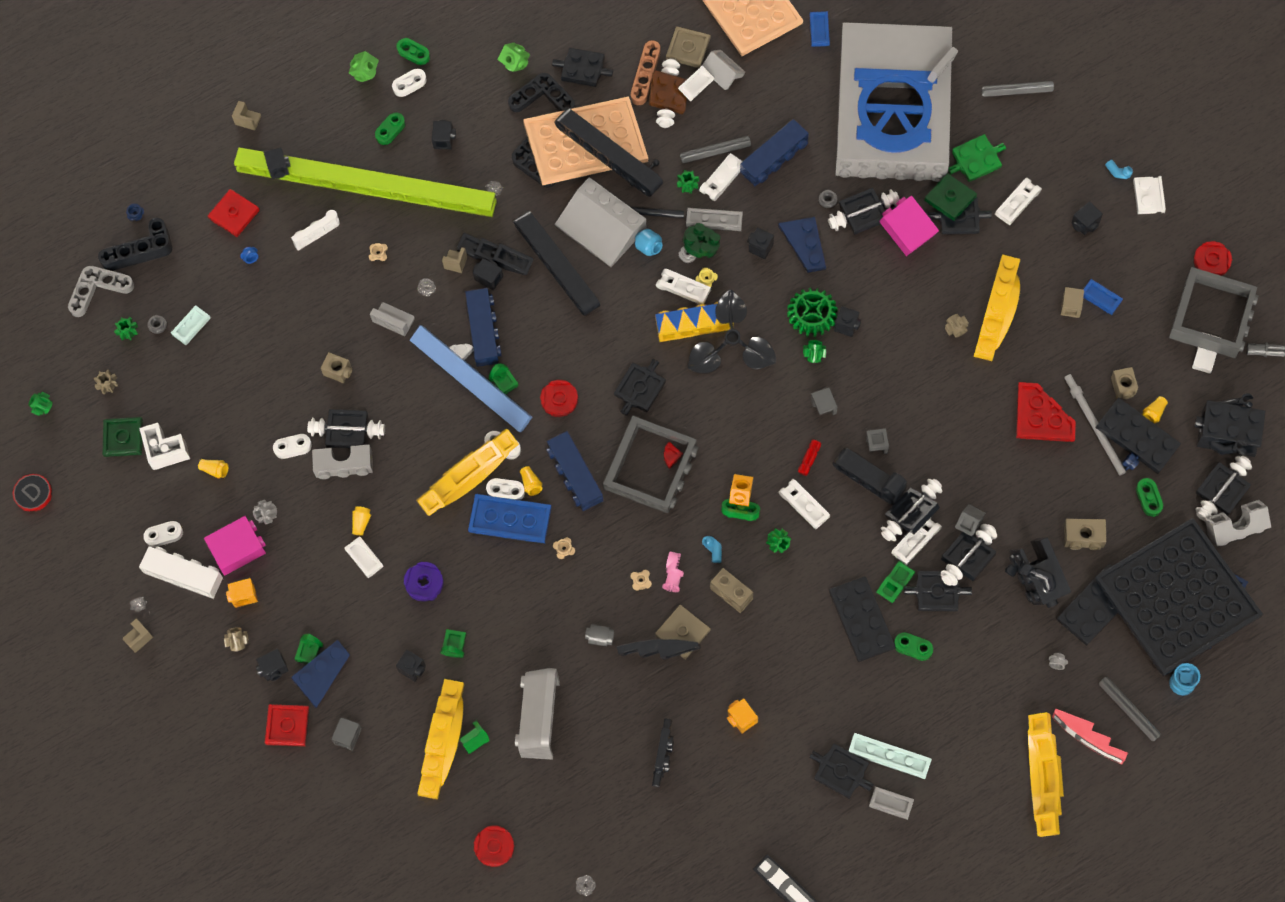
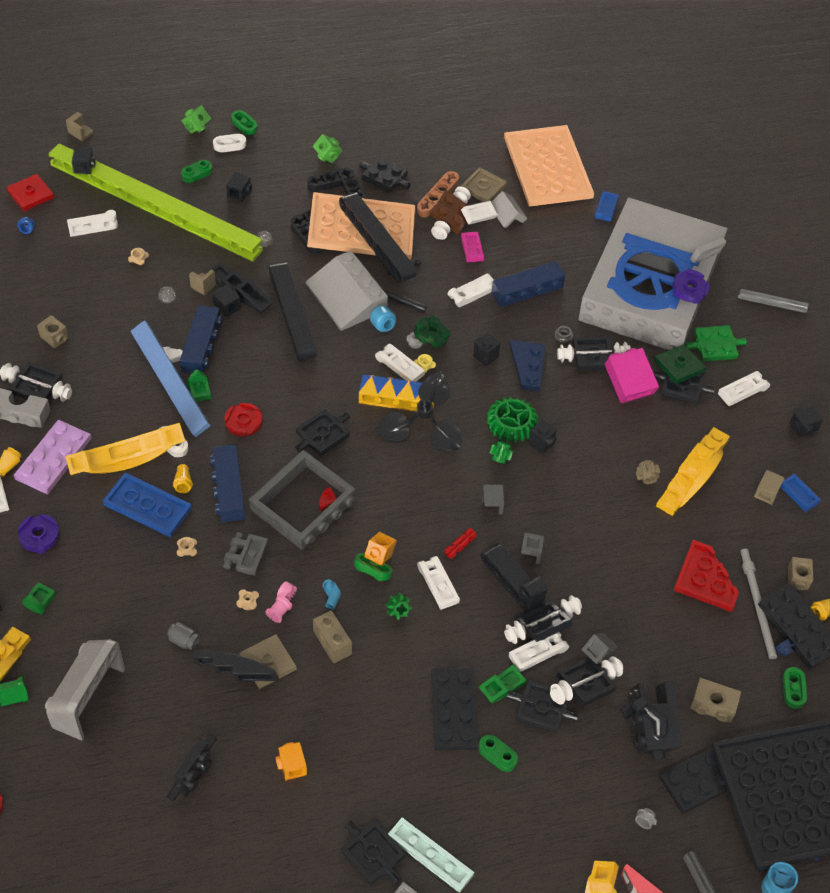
camera: 10 degrees right, 15 degrees down
(392, 318) = (123, 310): light grey panel -> none
(398, 499) = (48, 461): none -> lavender plate
(506, 488) = (157, 477): white plate -> none
(580, 885) = (48, 874): clear plate -> none
(626, 535) = (250, 556): none -> dark grey plate
(688, 181) = (439, 283): green gear -> none
(703, 126) = (472, 247): none -> dark pink plate
(715, 149) = (475, 267): dark grey axle -> none
(715, 219) = (454, 321): light grey tile -> none
(933, 121) = (683, 291): none -> dark purple plate

